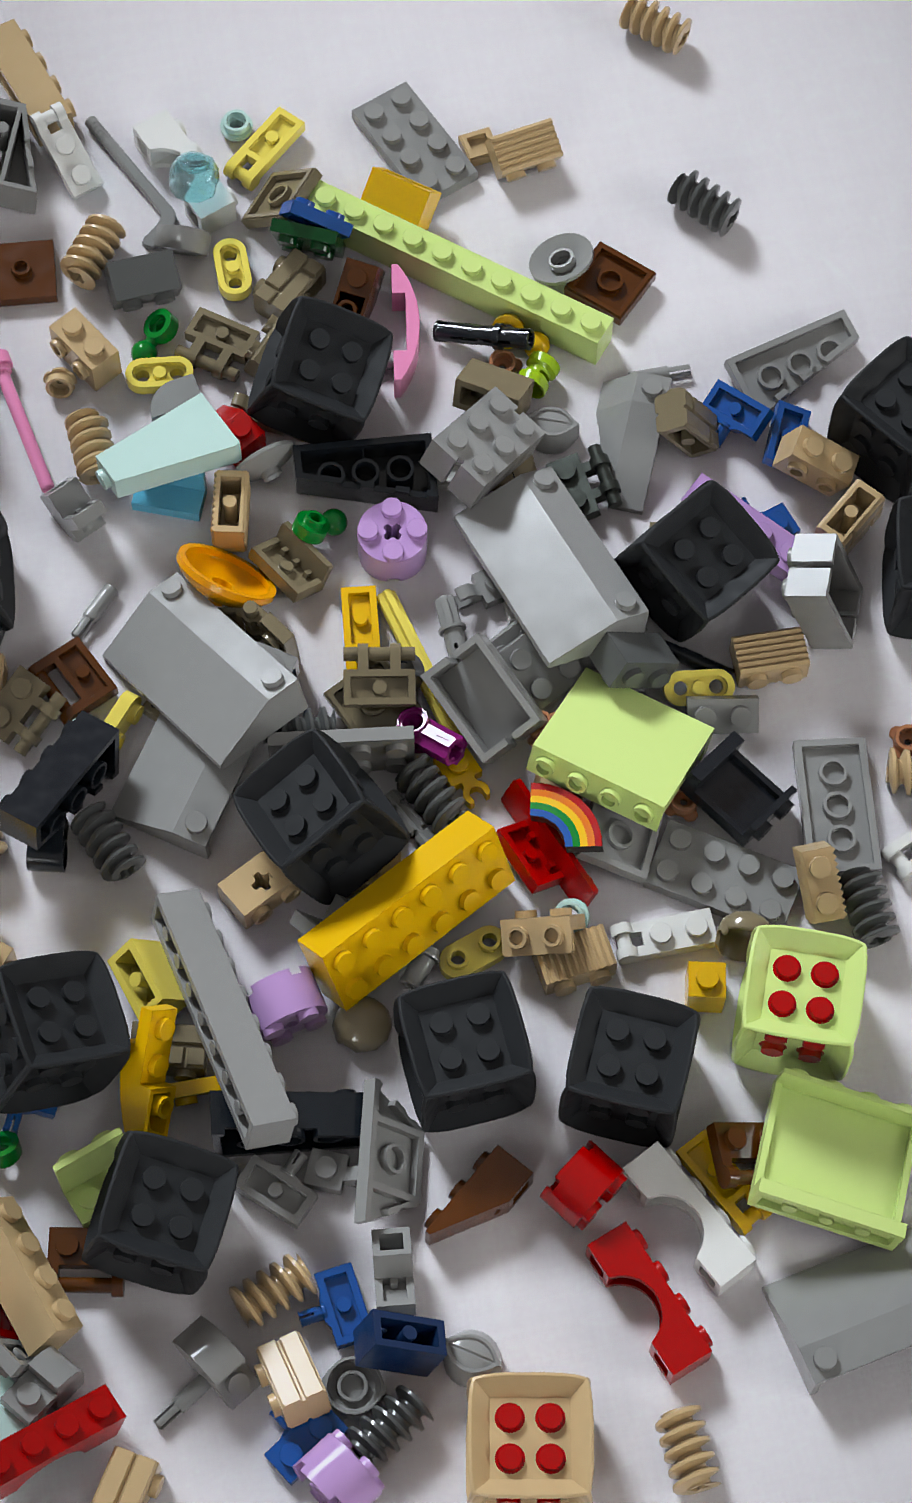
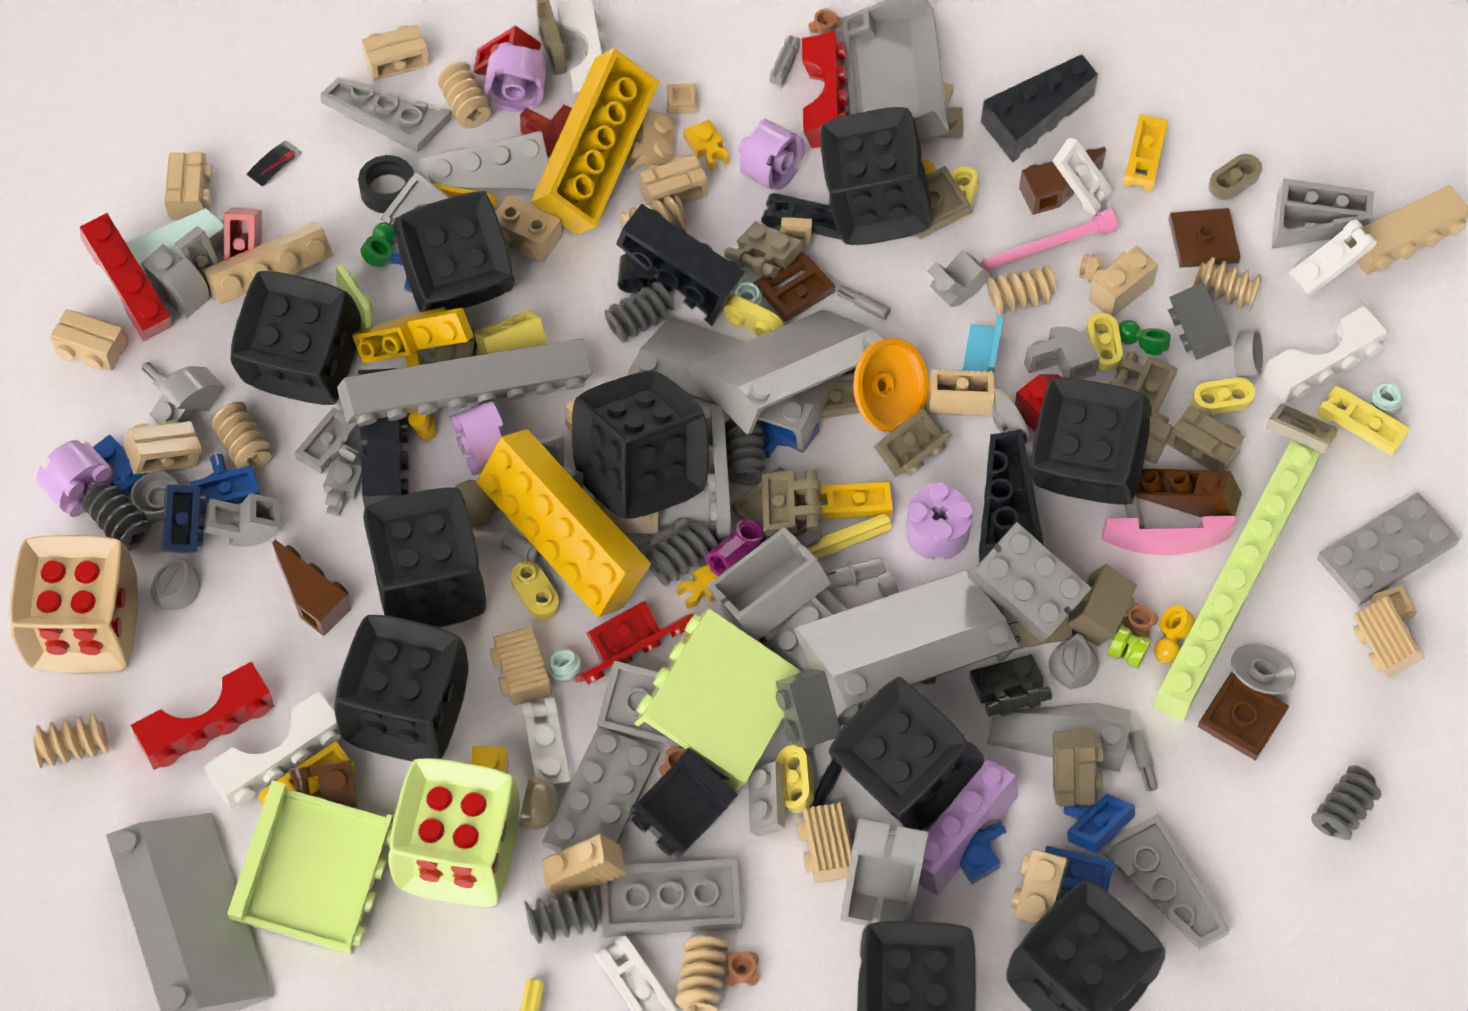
camera: 90 degrees right, 5 degrees down
(159, 203) = (1277, 347): light grey piece -> none
(169, 449) = (1010, 333): light aqua slope -> none
(193, 177) = (1309, 350): clear light blue hair -> none
(267, 627) = (832, 421): dark tan plate -> none
(303, 212) = (1267, 449): blue plate -> none
(313, 526) = (958, 476): green plate -> none
(323, 242) = (1255, 447): dark green plate -> none
(388, 1157) = (333, 511): light grey wing -> none
(401, 196) = (1313, 526): yellow brick -> none
(476, 334) = (1164, 605): black pin -> none
(540, 935) = (545, 629): tan bracket -> none
(566, 815) = (648, 649): tile -> none
(582, 1184) = (305, 660): red brick -> none
(853, 514) = (970, 908): tan brick -> none

